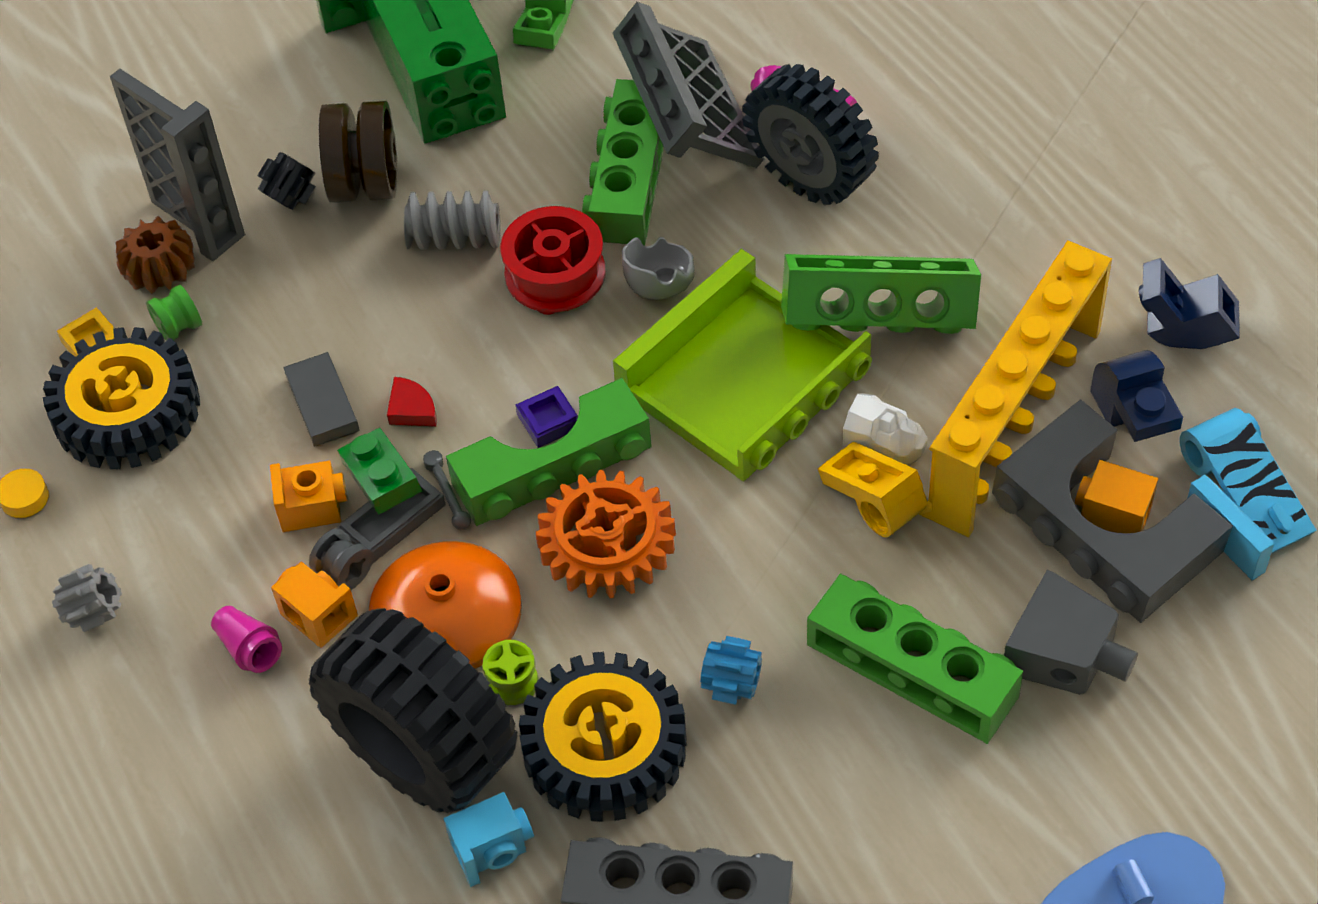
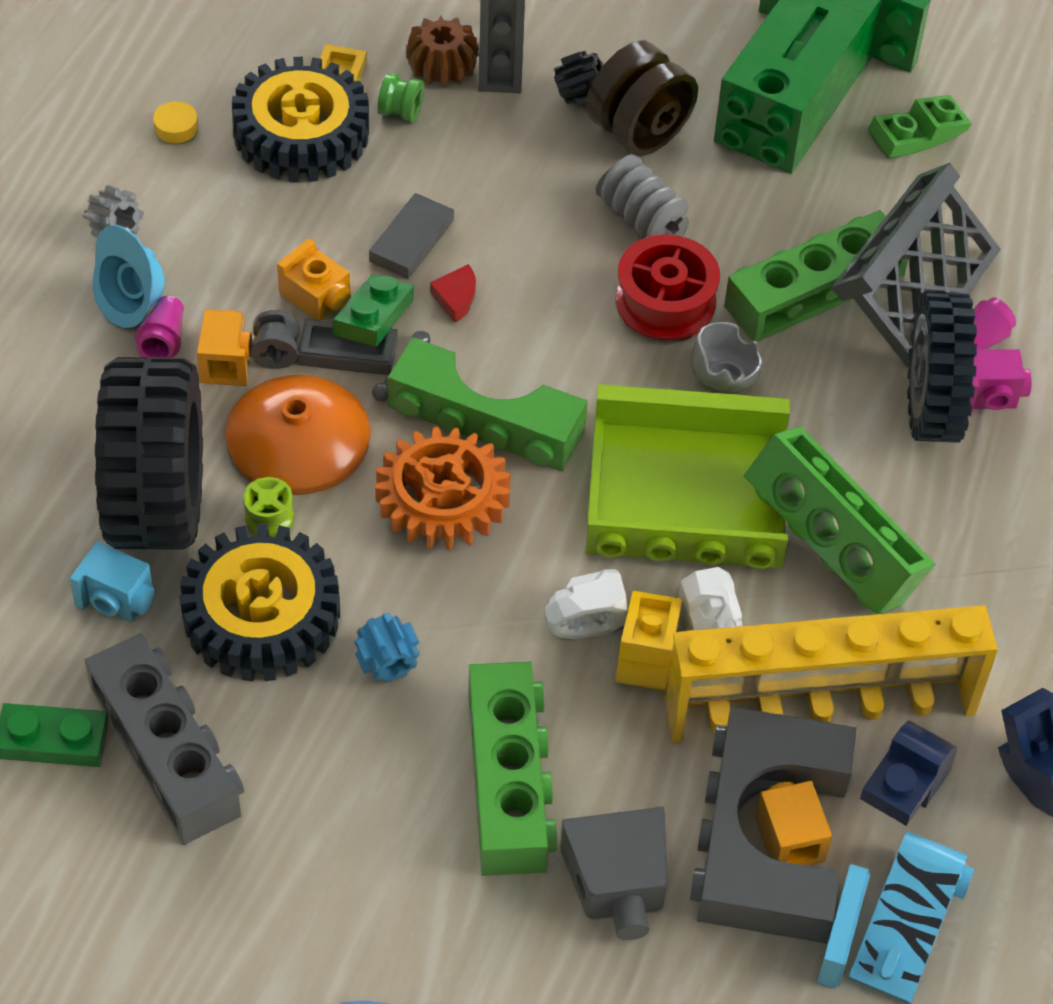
camera: 45 degrees right, 0 degrees up
(176, 627) = (125, 277): none -> medium azure piece
(547, 416) = (523, 378): dark purple tile -> none
(808, 503) = (588, 606): none -> white rock

